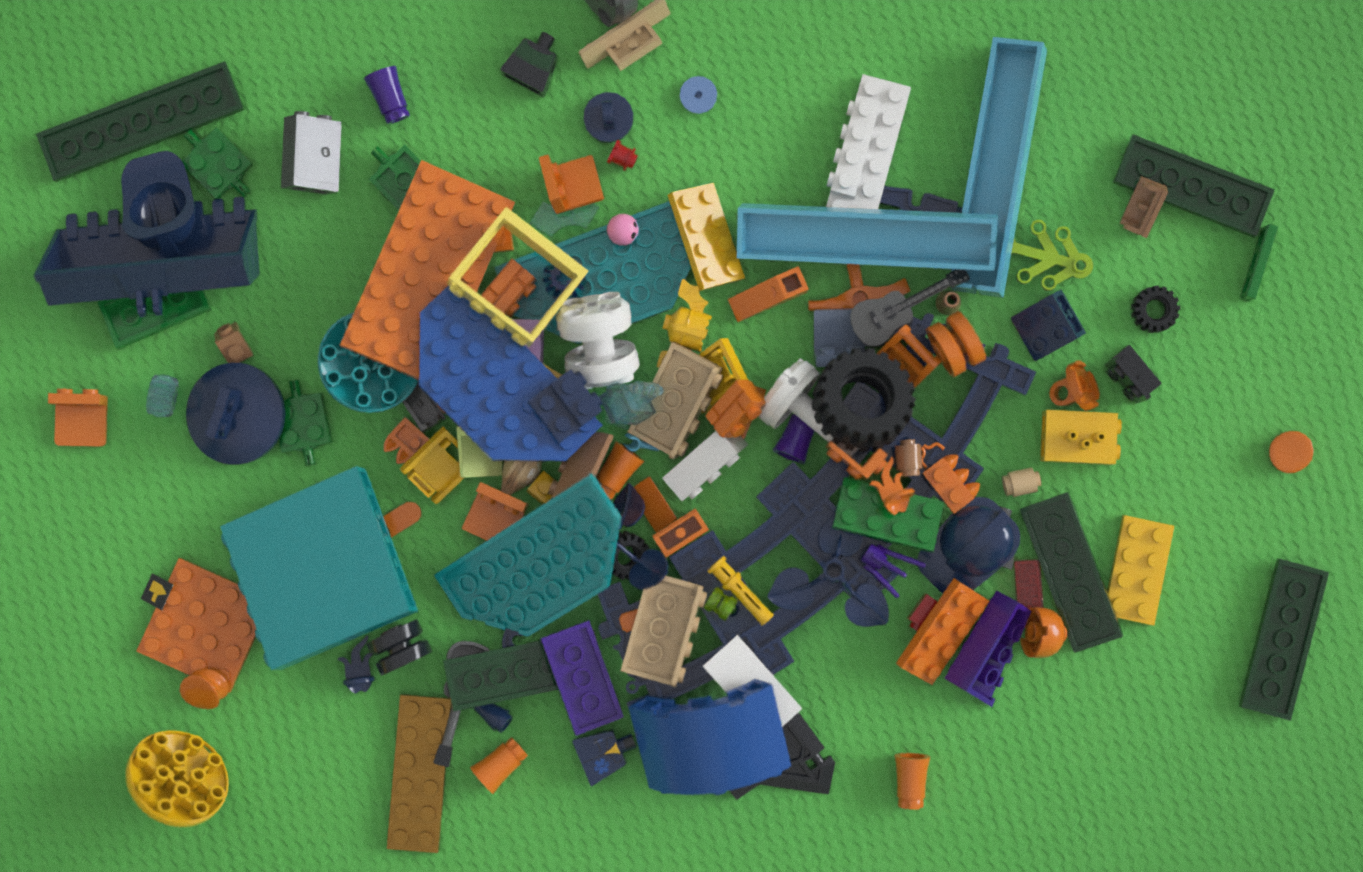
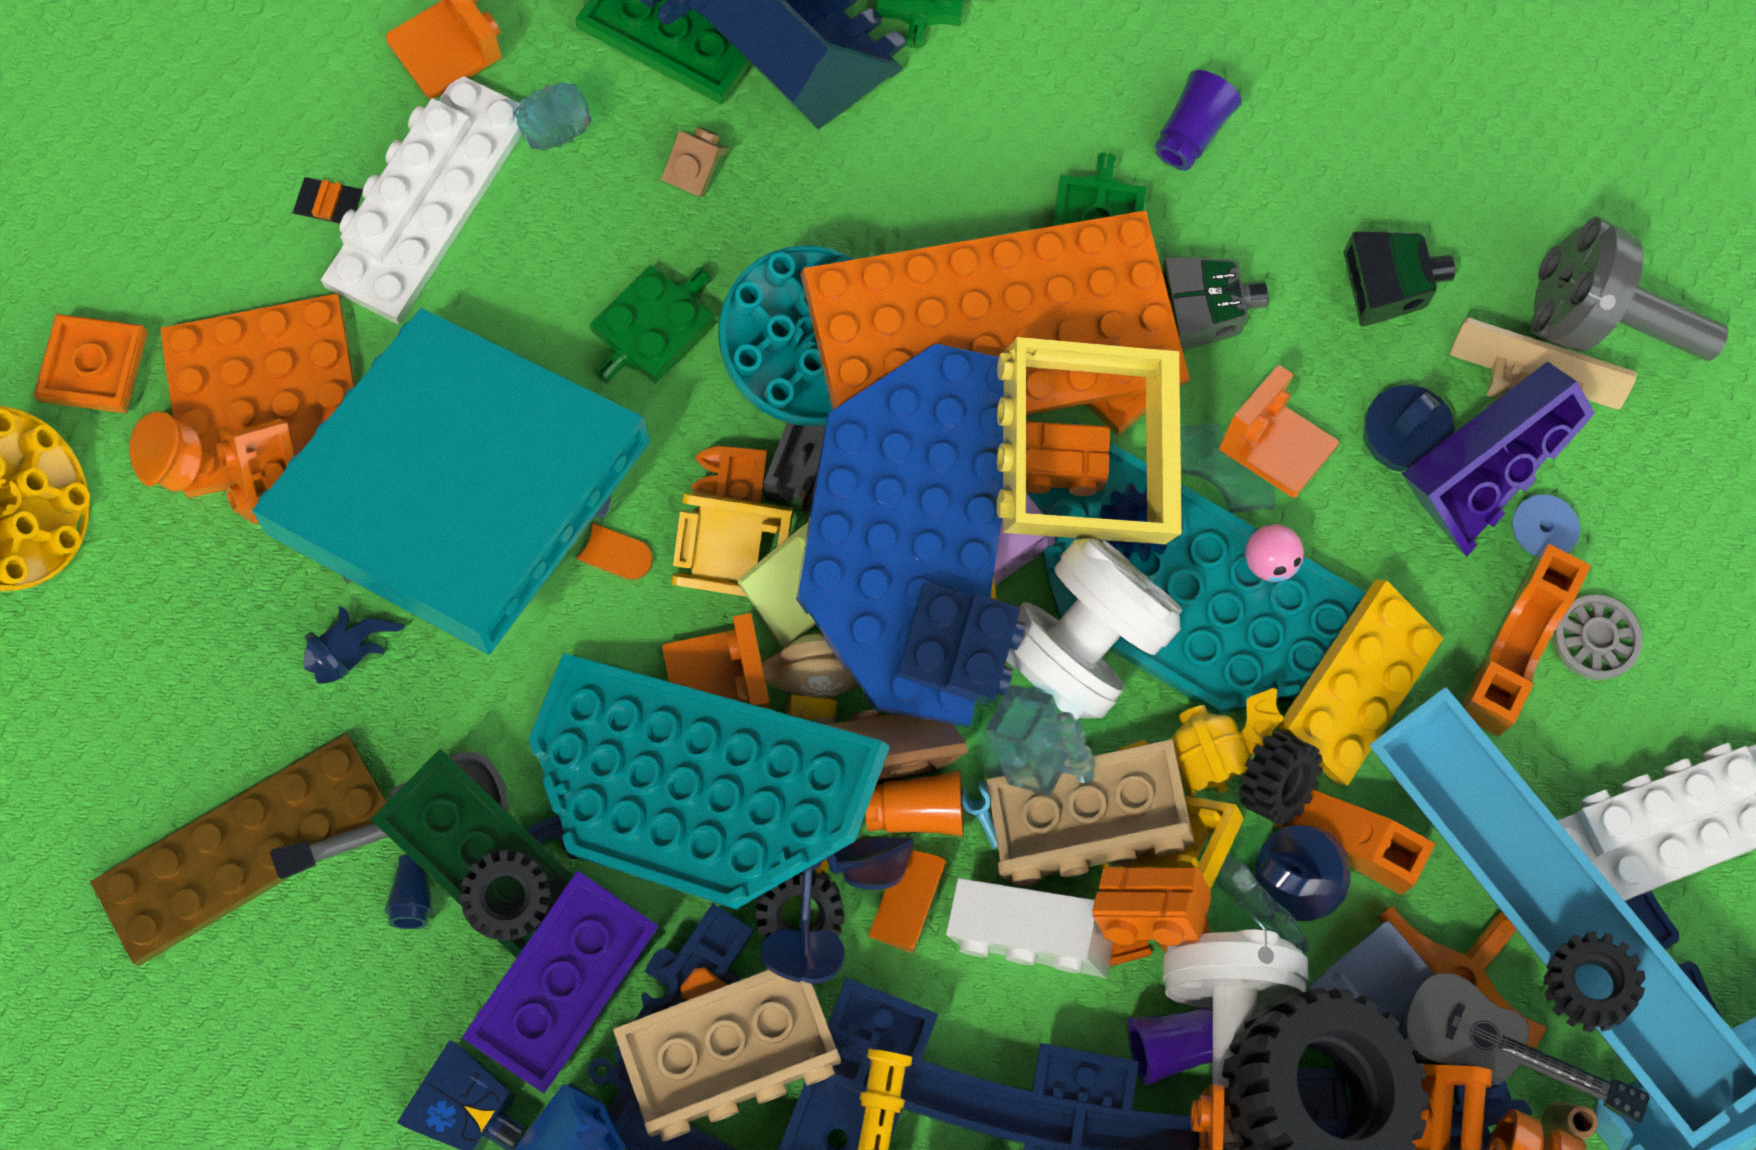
camera: 50 degrees right, 15 degrees down
(123, 529) = (326, 200): none -> black piece
(130, 694) = (91, 363): none -> orange plate
(156, 483) = (422, 198): none -> white plate
(157, 591) = (267, 298): black sticker -> none
(235, 413) = (599, 226): dark blue bracket -> none
(243, 652) = (254, 462): none -> orange bracket
(311, 153) = (1035, 75): piece -> none
(399, 647) = (417, 675): black wheel -> none
(481, 160) = (1209, 299): none -> dark grey torso
(499, 764) = (335, 956): orange plant -> none
(543, 683) = (474, 895): none -> black tyre
(622, 156) = (1373, 482): red brick -> none
(652, 93) = (1498, 453): none -> dark purple wedge
(680, 532) = (896, 968): orange brick -> none
(722, 307) = (1280, 777): none -> black tyre
(725, 607) = (834, 1121): clear neon green wheel -> none
(740, 150) = (1522, 638): none -> orange arch
(763, 113) = (1598, 638): none -> light grey wheel
(767, 329) = (1304, 871): none -> dark blue tile
(776, 357) = (1269, 915): none -> clear light blue tile
(895, 240) = (1612, 958): none -> black tyre

